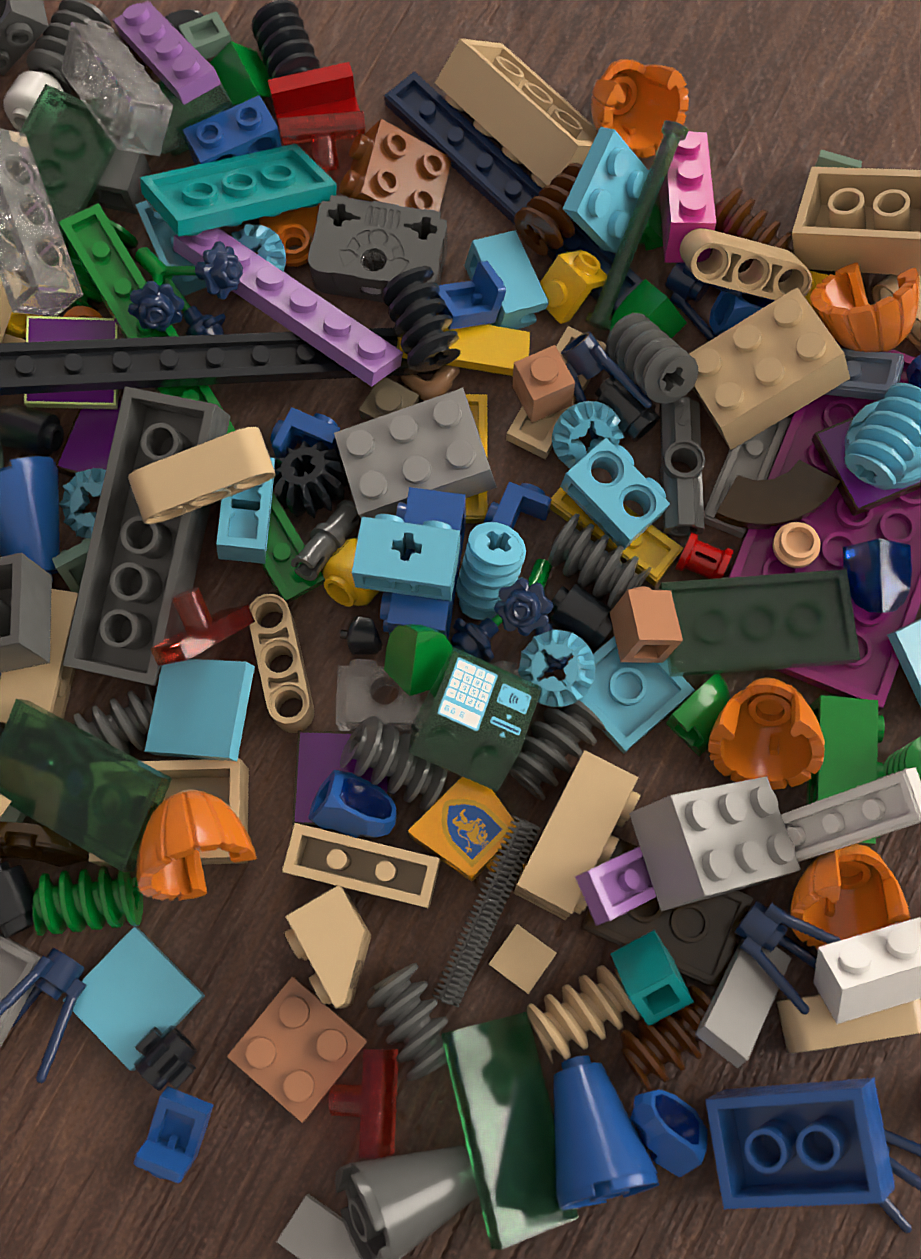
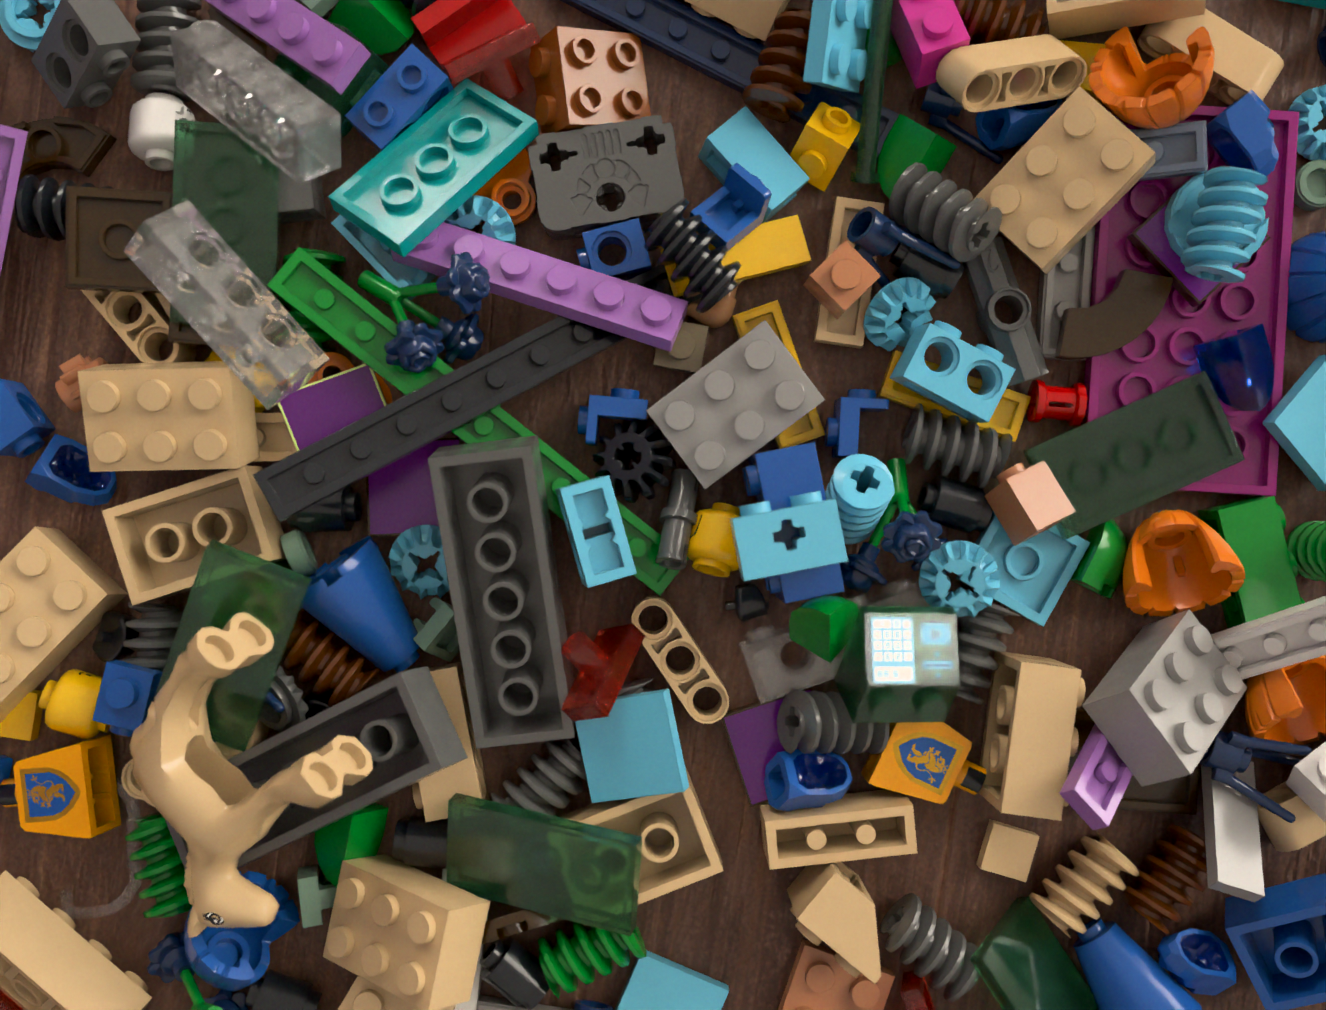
camera: 25 degrees left, 15 degrees up
(175, 834) = (682, 884): orange hair -> none
(201, 475) = (551, 530): tan beam -> none
(362, 294) = (625, 234): none -> blue brick
(487, 912) = (967, 827): dark grey axle -> none
(651, 978) = (1142, 838): teal brick -> none
(796, 544) = (1148, 361): light nougat plate -> none

